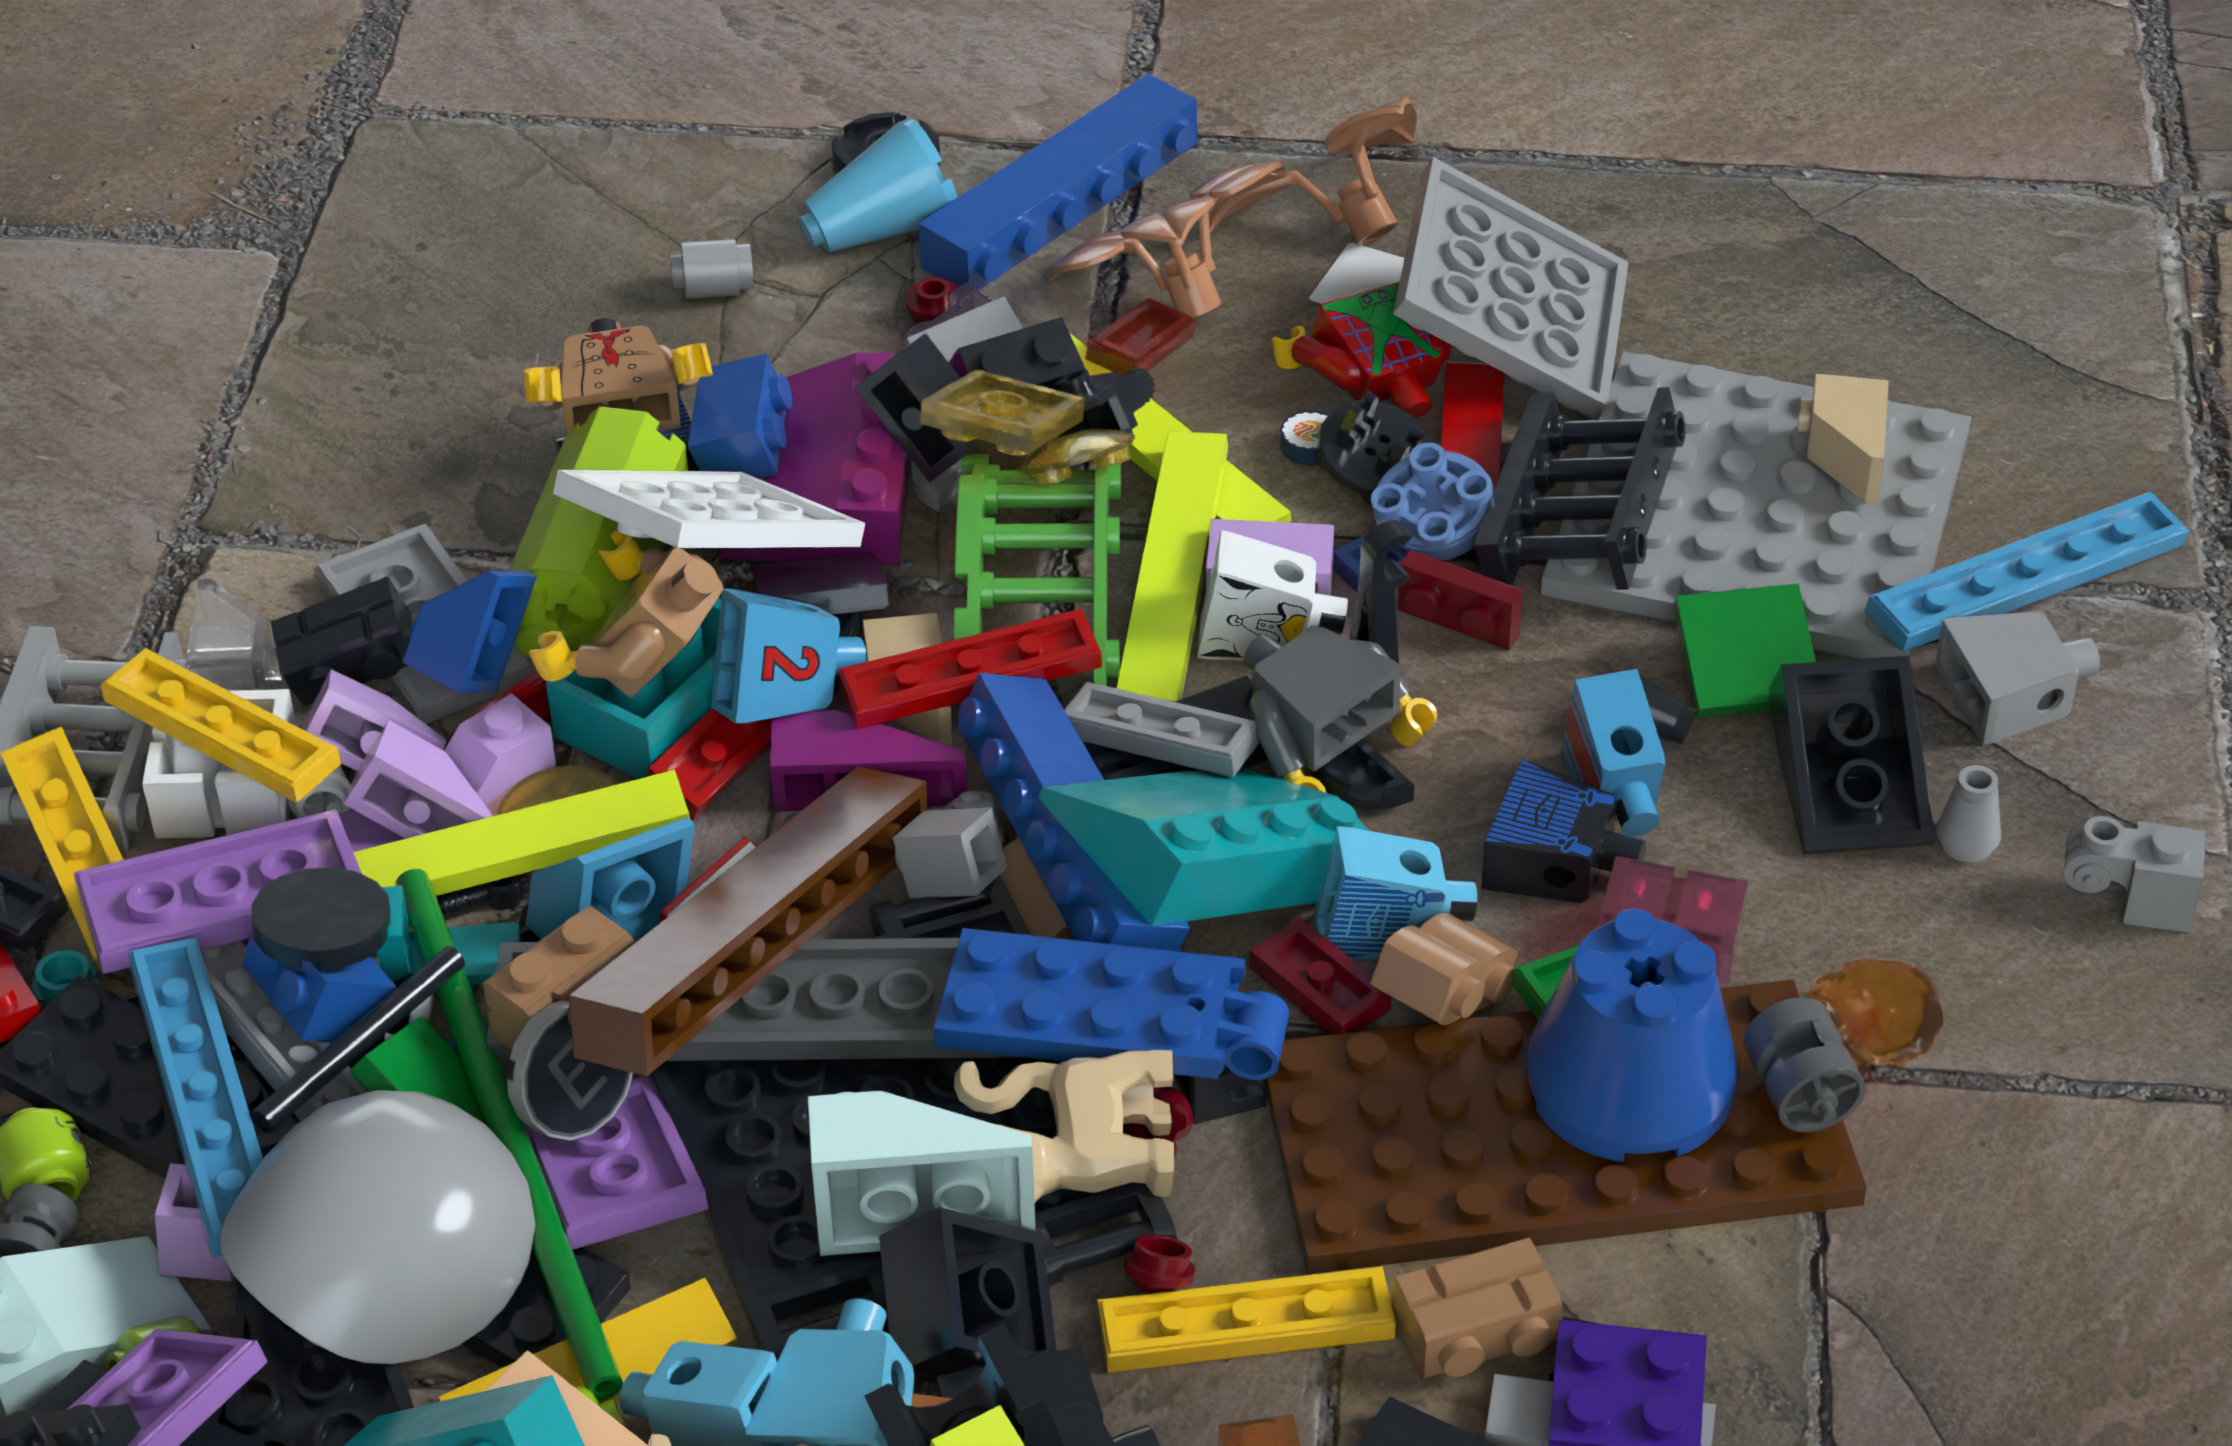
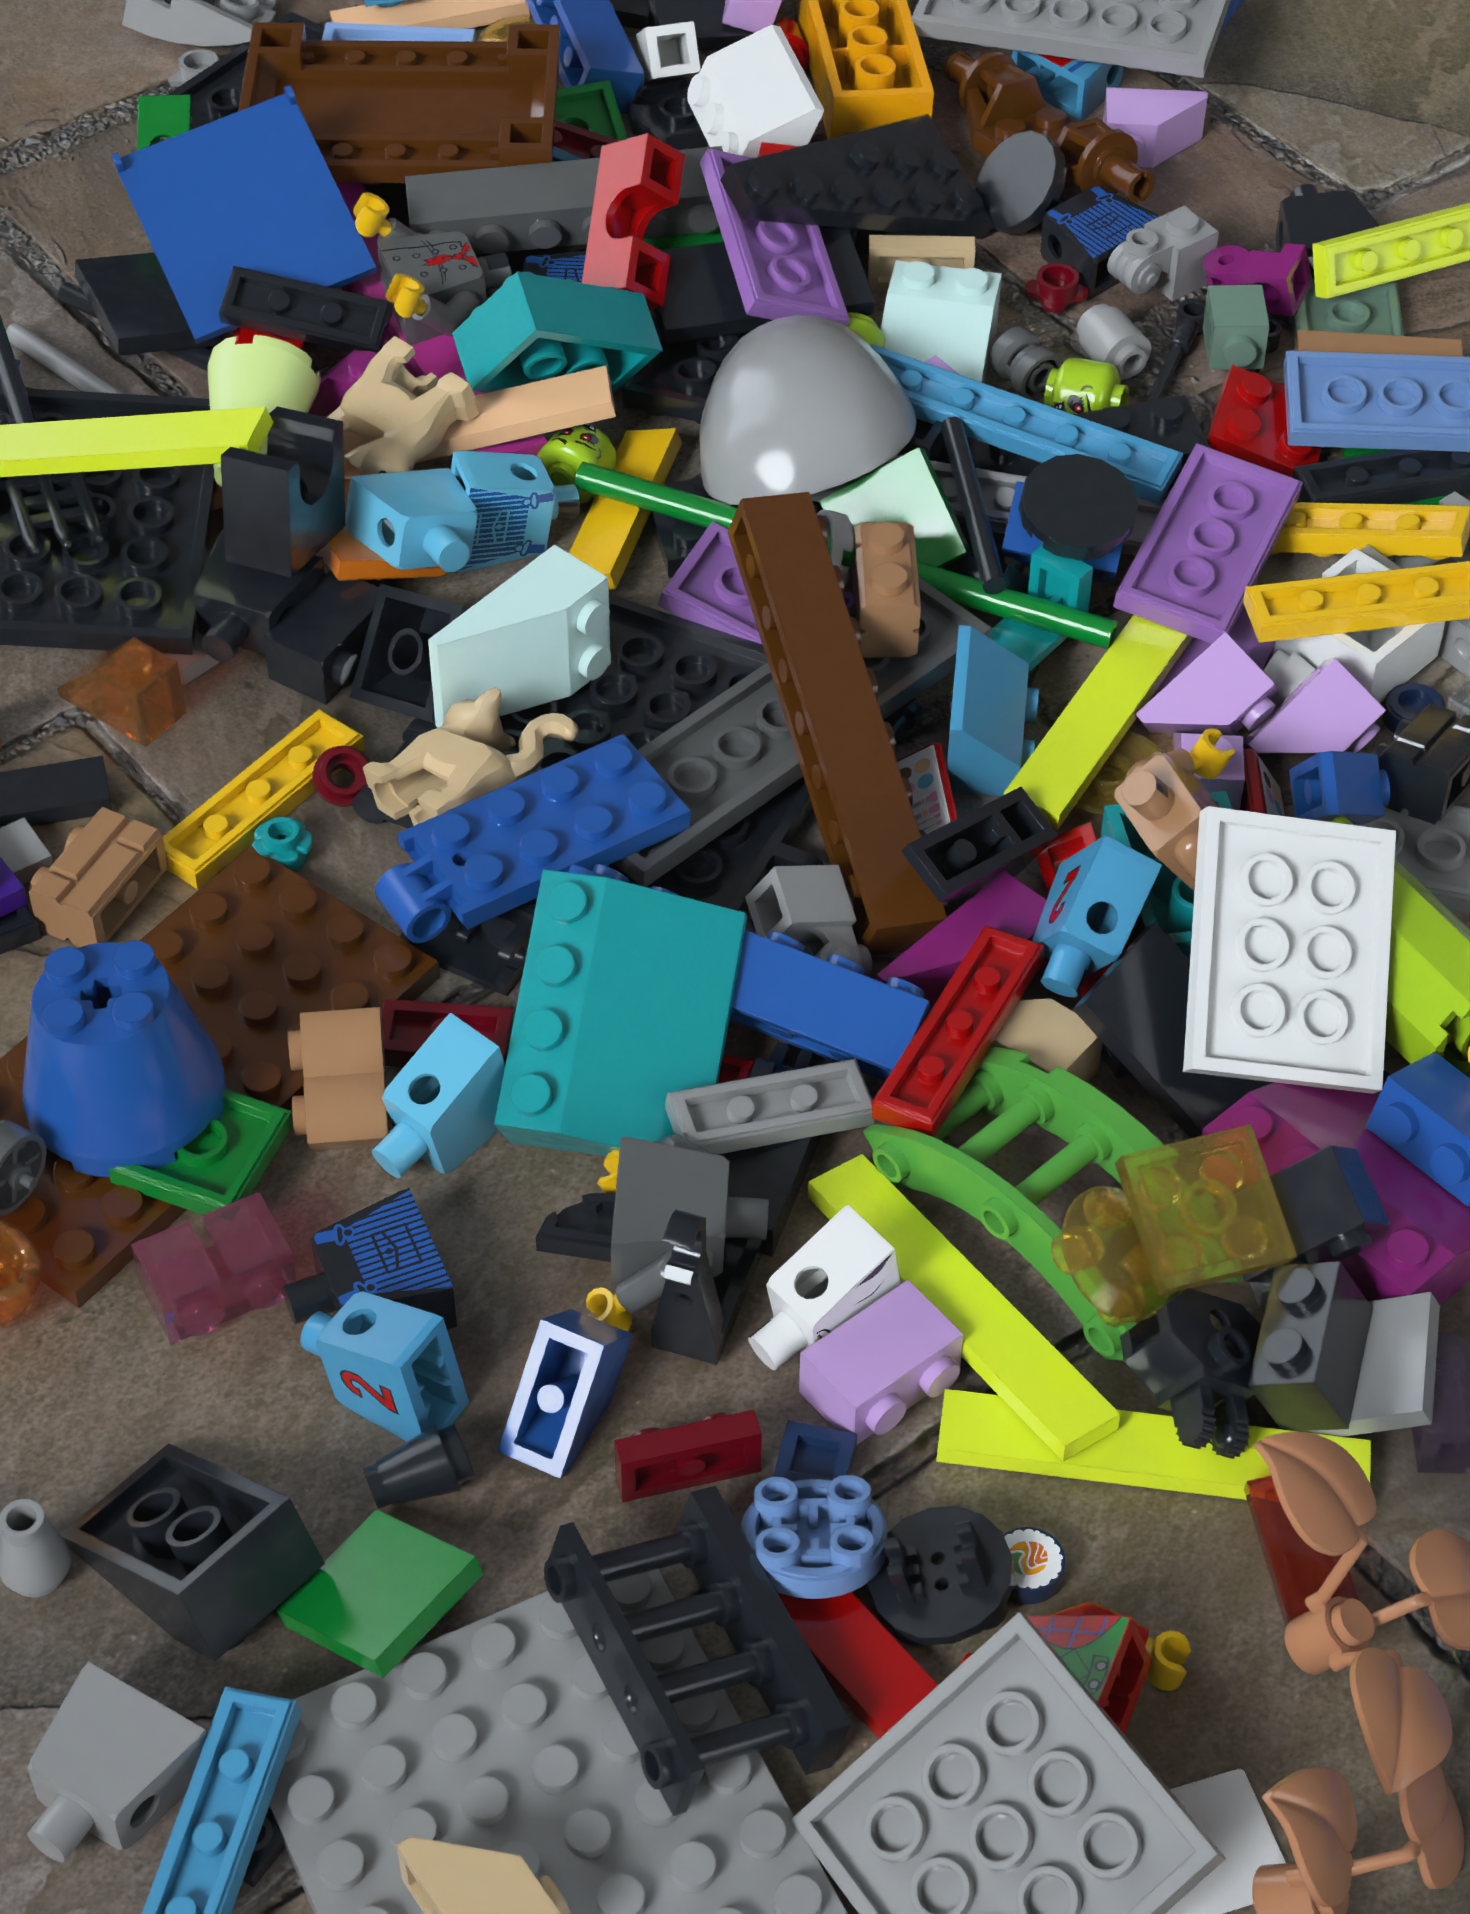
camera: 135 degrees right, 5 degrees up
(771, 781) = (980, 846): none -> black slope
(1270, 1261) = (284, 841): none -> teal plate
(1493, 683) = (563, 1390): none -> blue slope

